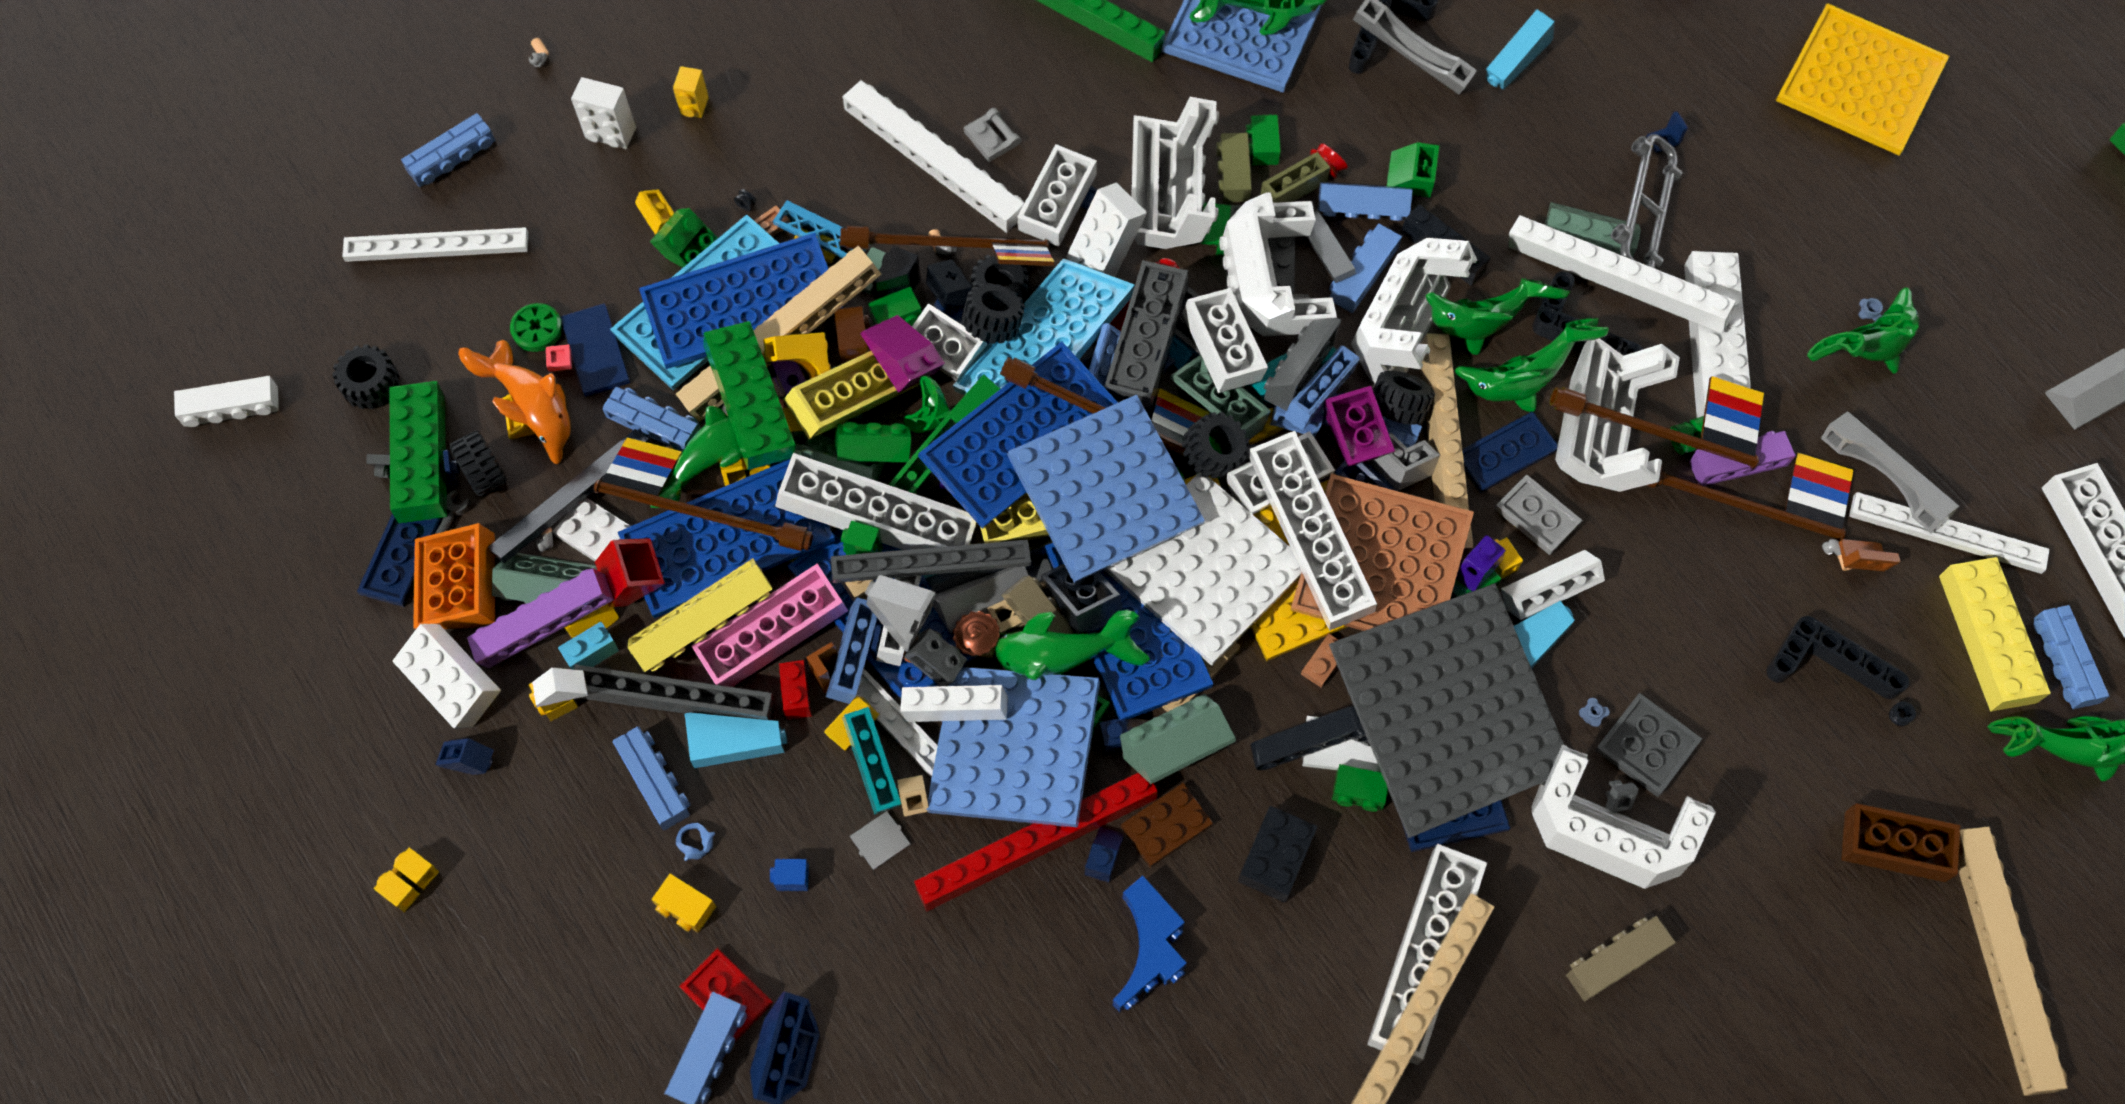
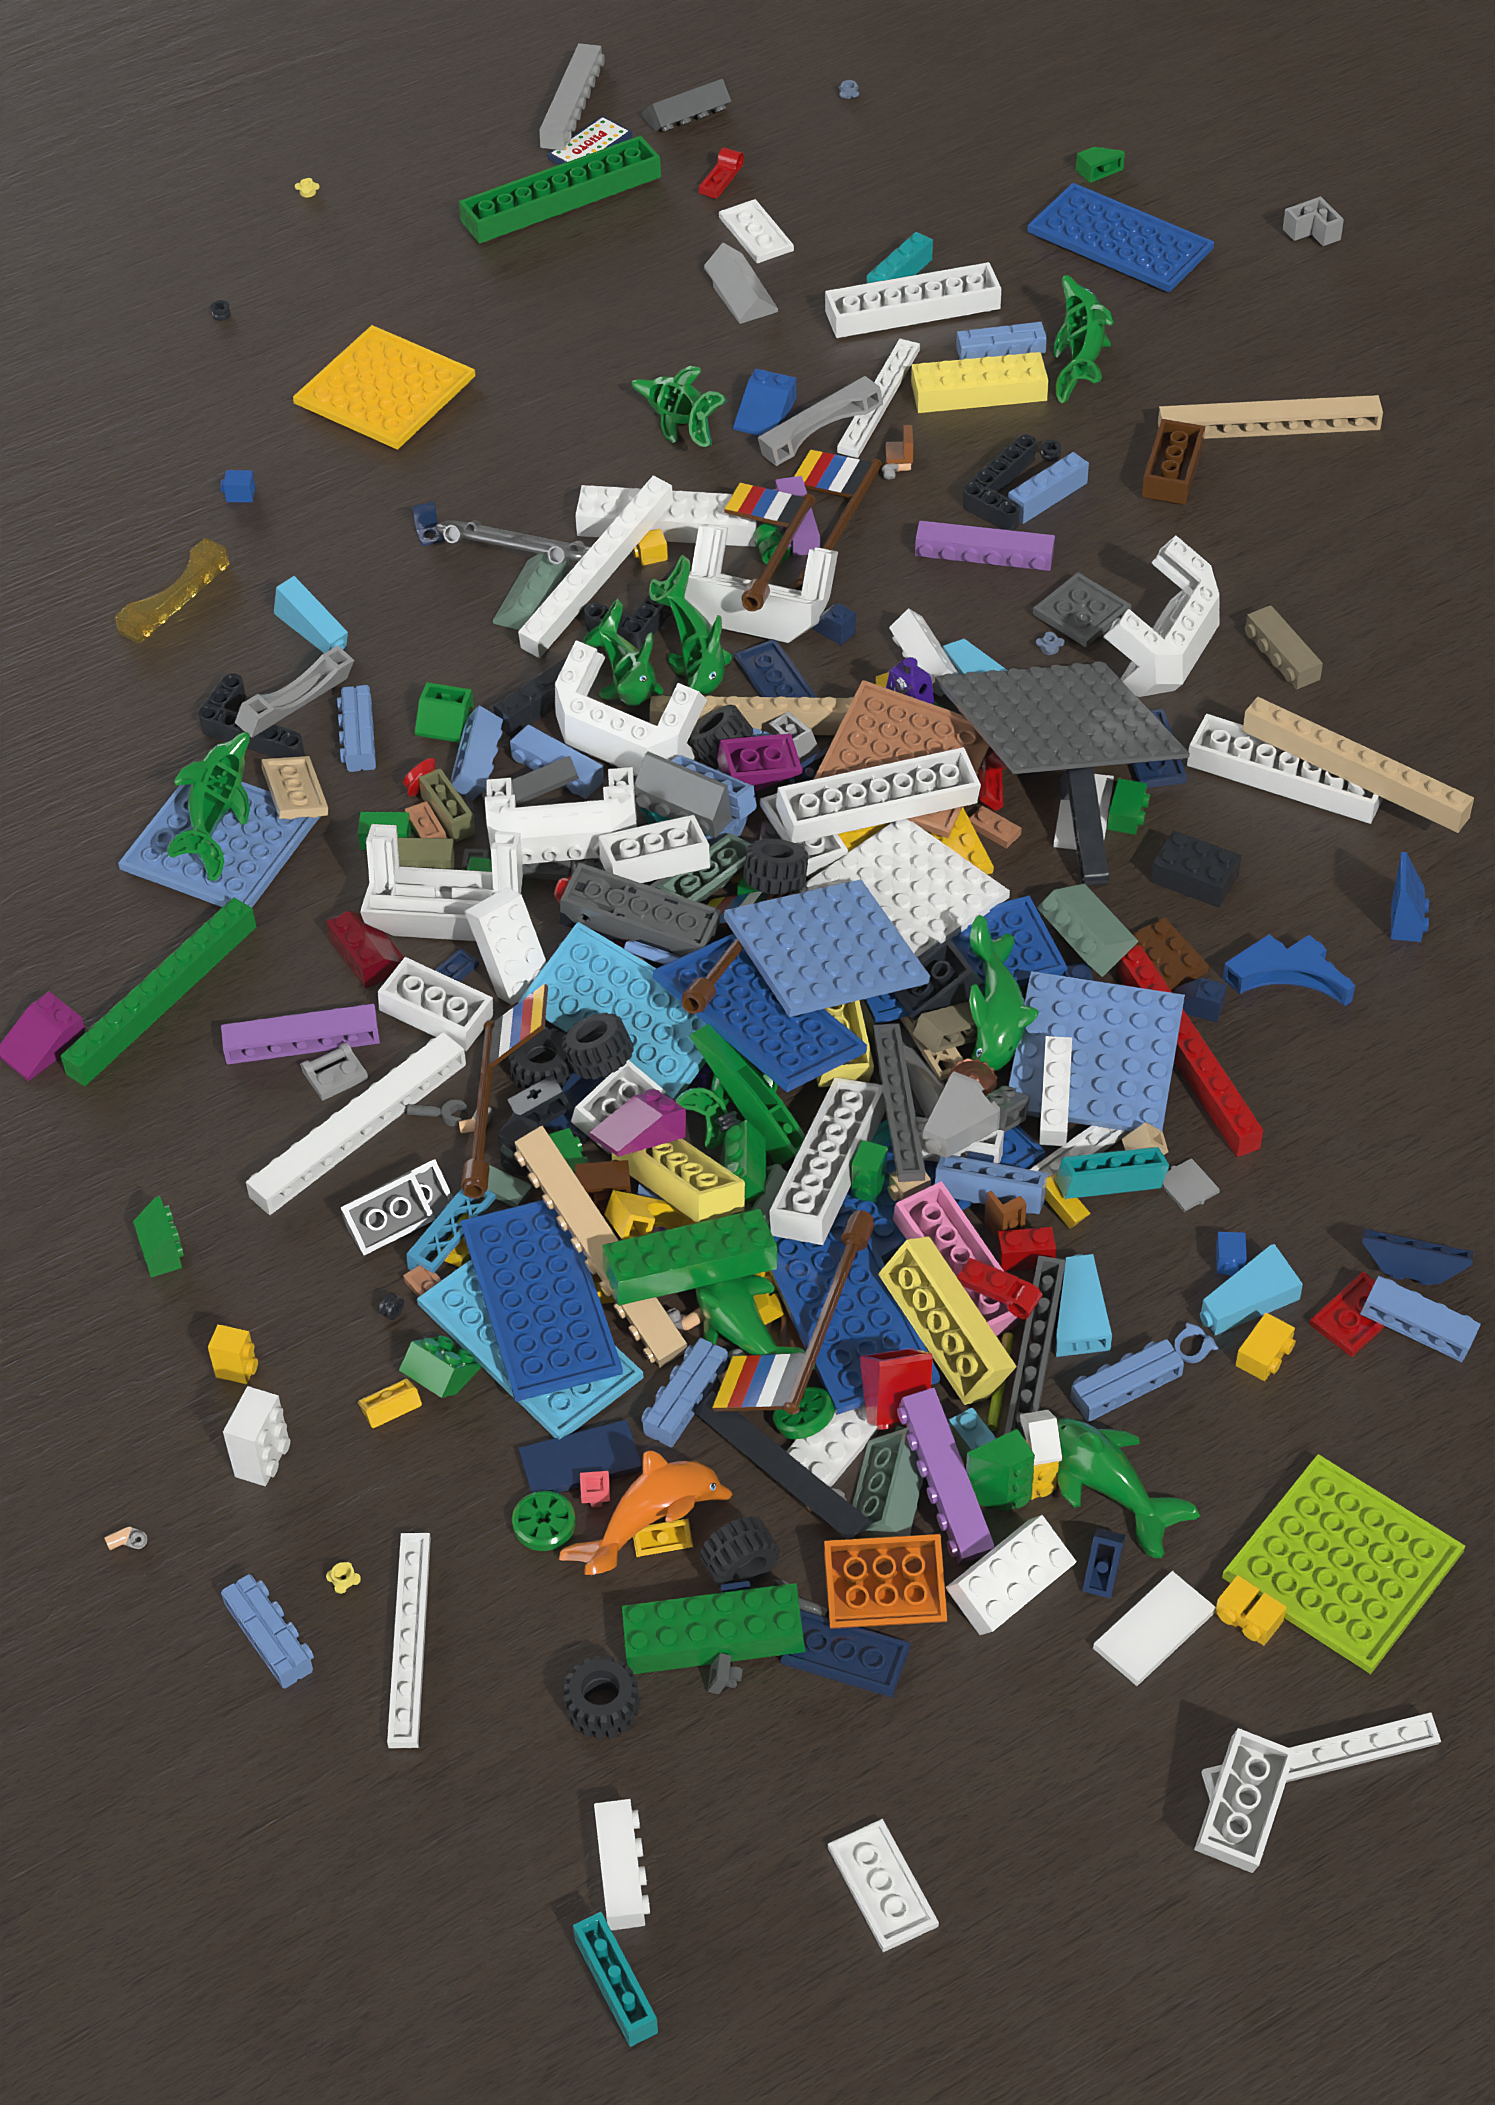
camera: 85 degrees left, 15 degrees down
(127, 402) = (615, 1979): none -> teal brick
(192, 590) = (883, 1885): none -> white tile
(209, 862) = (1245, 1800): none -> white brick
(260, 937) = (1352, 1748): none -> white plate
(401, 801) = (1154, 1628): none -> white tile
(451, 966) = (1345, 1562): none -> lime plate
(491, 192) = (339, 1571): none -> light yellow plate
(531, 656) = (1002, 1472): none -> green slope
(551, 741) = (1096, 1461): none -> green animal
(613, 518) = (814, 1415): none -> green wheel
(662, 672) = (997, 1396): none -> lime bar
(716, 668) = (999, 1285): none -> red plate
(747, 894) = (1251, 1292): none -> medium azure slope
(807, 33) = (158, 1238): none -> green slope
(840, 192) = (397, 1207): none -> light grey slope
(915, 425) = (727, 1121): none -> black bush
(950, 220) = (434, 1111): none -> dark grey piece
(1027, 103) = (299, 1034): none -> medium lavender brick
(1114, 141) = (363, 948): none -> dark red slope
(1235, 1070) = (1408, 904): none -> blue slope
(1274, 167) = (425, 822): none -> nougat plate
(1303, 62) = (294, 787): none -> tan plate
(1389, 106) = (358, 728): none -> medium blue brick
(1538, 514) = (846, 660): light grey plate -> none
(1588, 501) = (836, 623): none -> dark blue slope
(1670, 328) = (651, 548): none -> yellow brick
(1728, 644) = (984, 545): none -> medium lavender brick
(1833, 708) = (1050, 486): none -> medium blue brick
(1872, 304) = (644, 415): sand blue plate -> none
(1911, 420) = (765, 402): none -> blue slope

